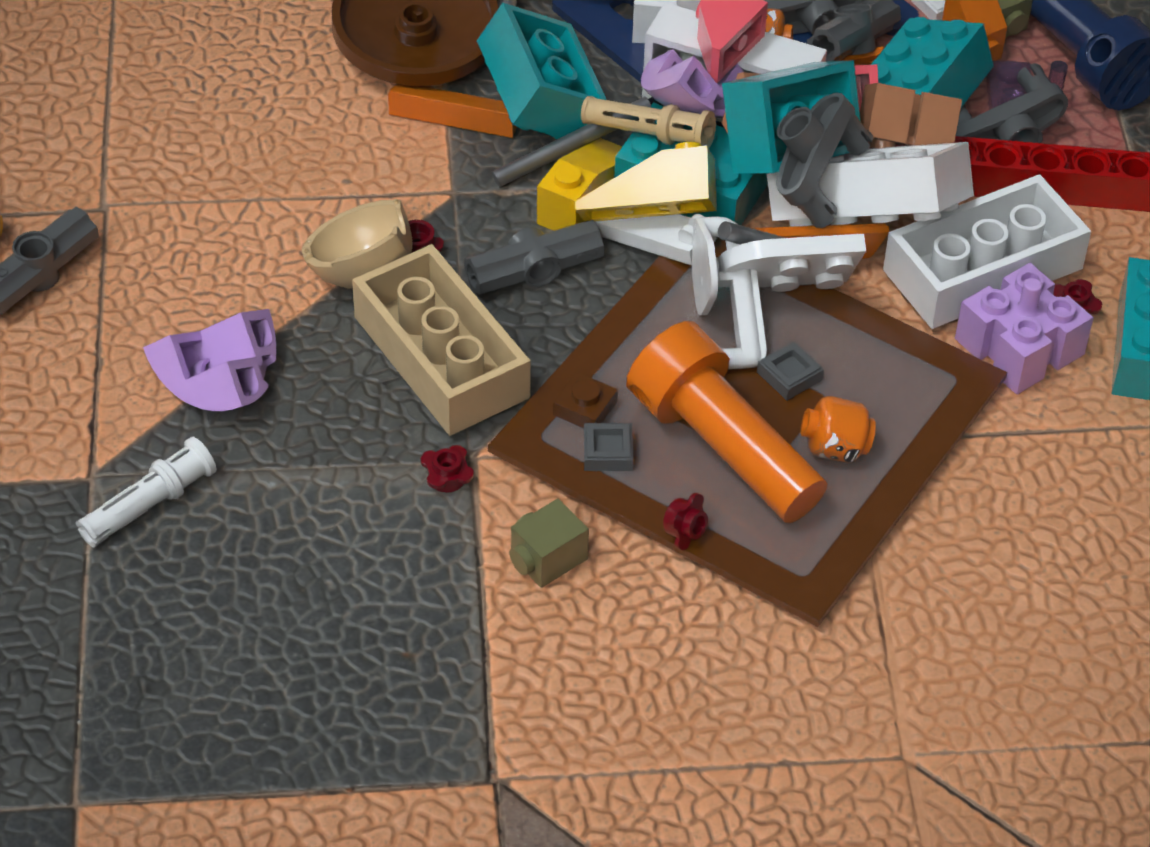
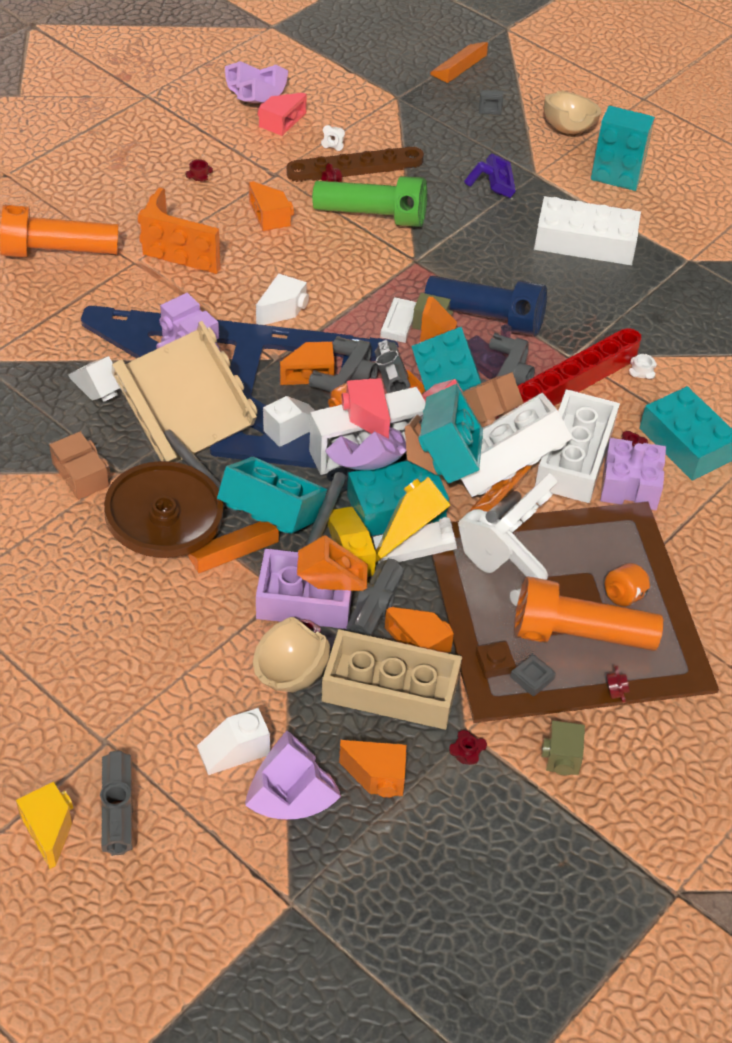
camera: 45 degrees left, 0 degrees up
(164, 480) = (341, 872): white pin -> none
(216, 288) = (235, 742): none -> white slope
(326, 414) = (375, 766): none -> orange slope
(463, 189) = (287, 595): none -> lavender brick
(492, 173) = (331, 566): none -> orange slope
(540, 321) = (419, 629): none -> orange slope
(669, 120) = (382, 479): tan pin -> none
(790, 370) = (564, 570): dark grey tile -> none
(810, 143) = (491, 452): dark grey connector -> none

